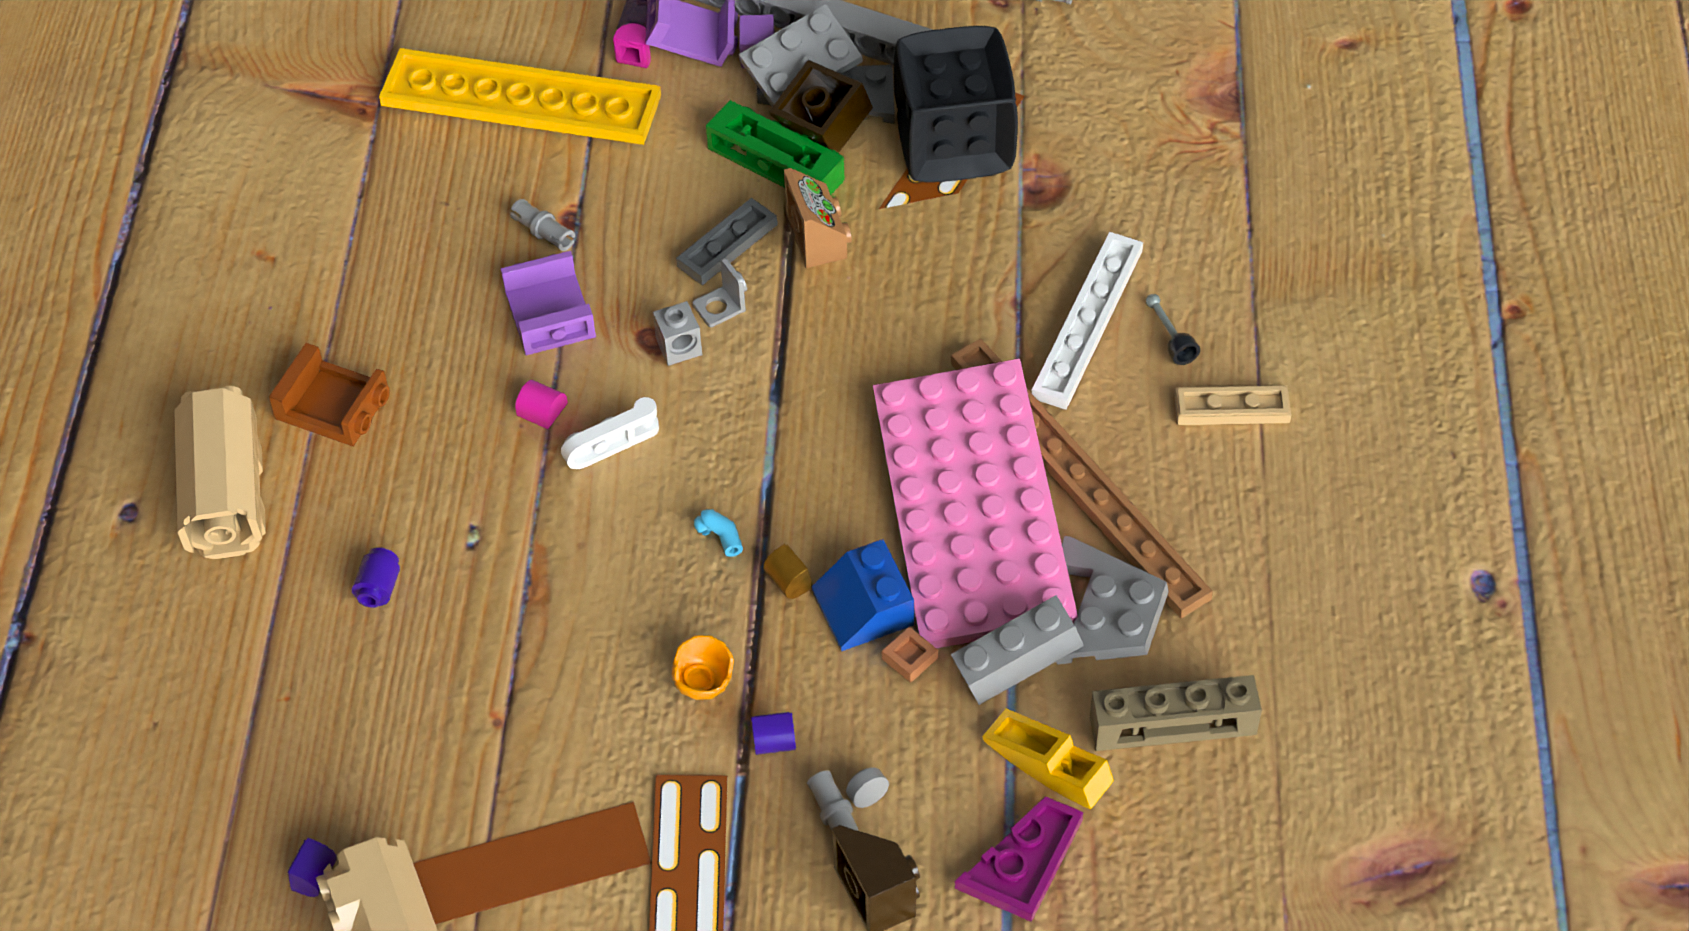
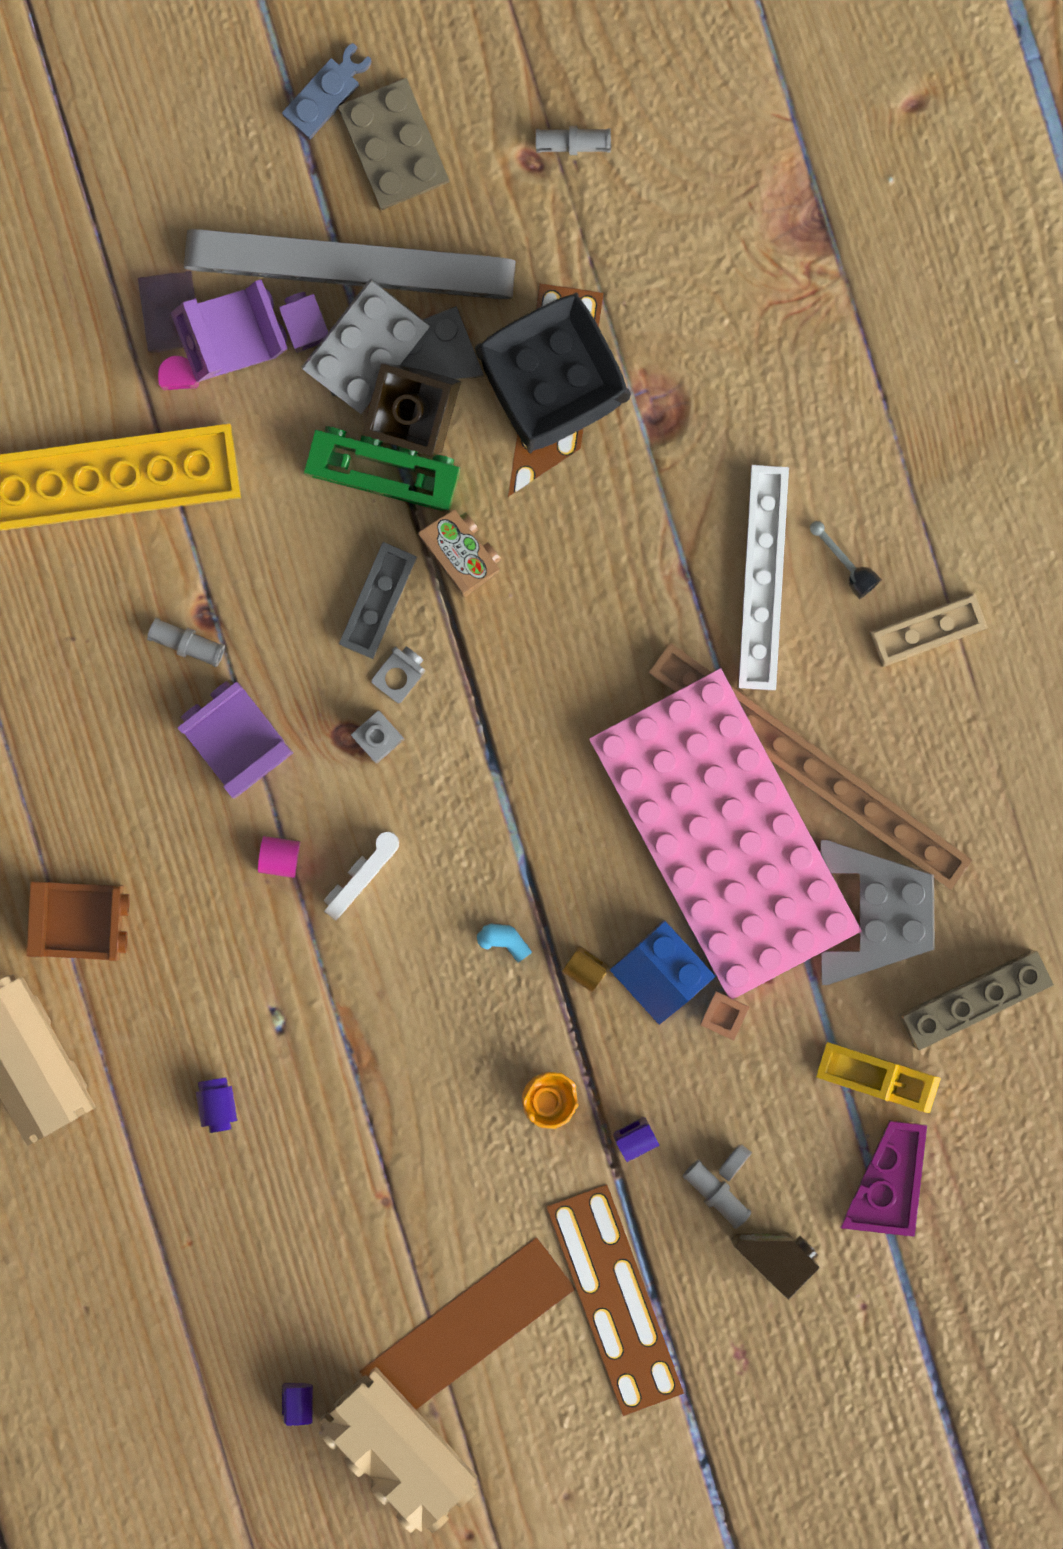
camera: 20 degrees left, 35 degrees up
(1017, 649) = (822, 992): light grey brick -> none

